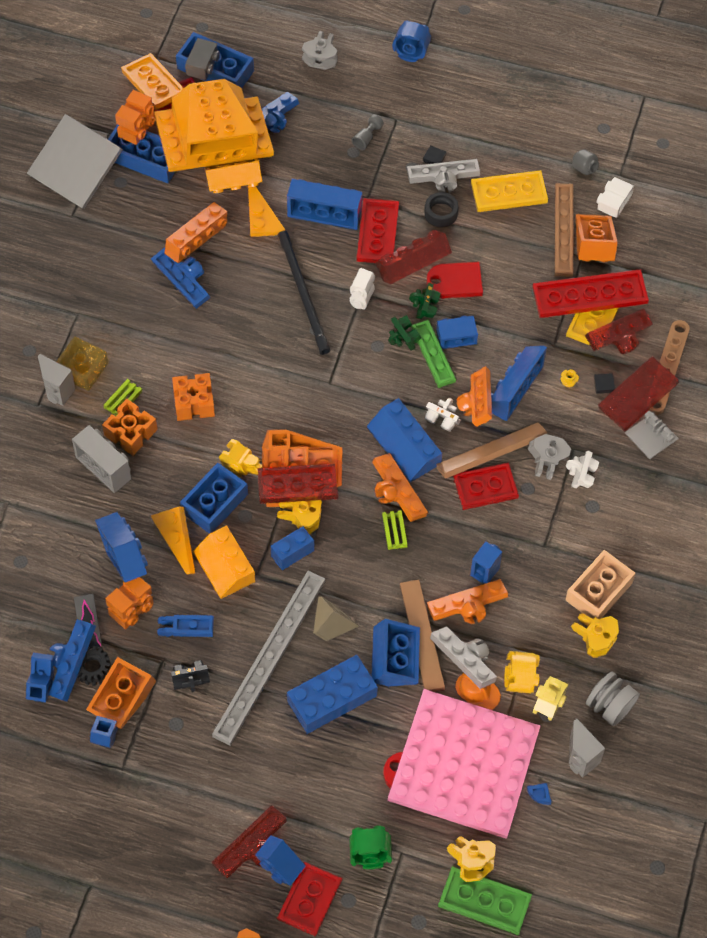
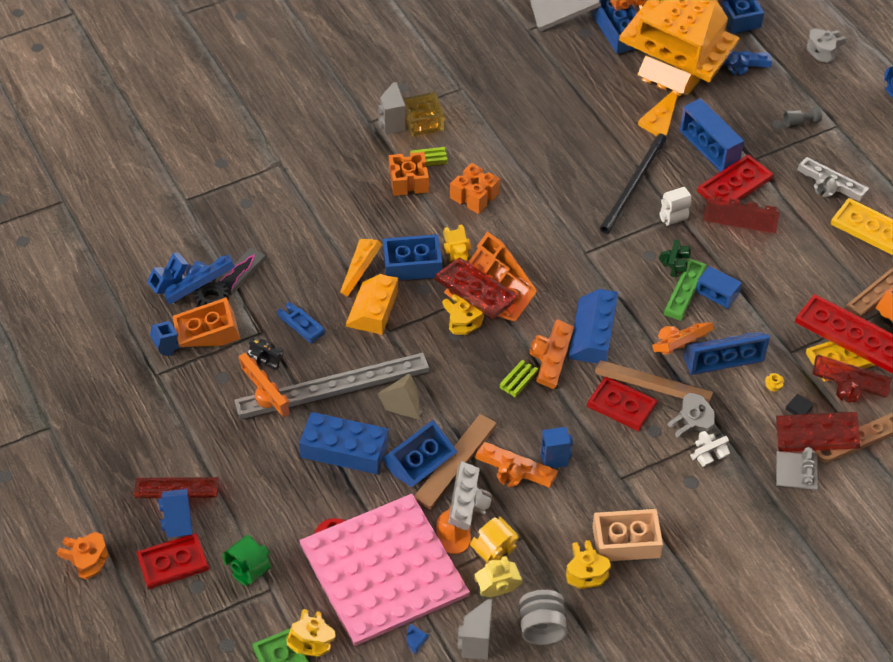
camera: 45 degrees right, 10 degrees down
(102, 458) = (366, 176): light grey brick -> none
(122, 546) = (306, 231): blue brick -> none
(130, 601) = (279, 273): orange brick -> none
(183, 277) = (557, 113): blue plate -> none
(196, 232) = (596, 90): orange brick -> none
(235, 706) = (266, 392): none -> orange plate
(292, 548) = (429, 330): blue brick -> none
(423, 299) = (712, 254): dark green hips -> none
(434, 155) = (839, 165): black tile -> none
(441, 198) = (799, 211): black tyre -> none
(449, 418) = (638, 325): white hips -> none
(457, 279) = (760, 255): red tile -> none

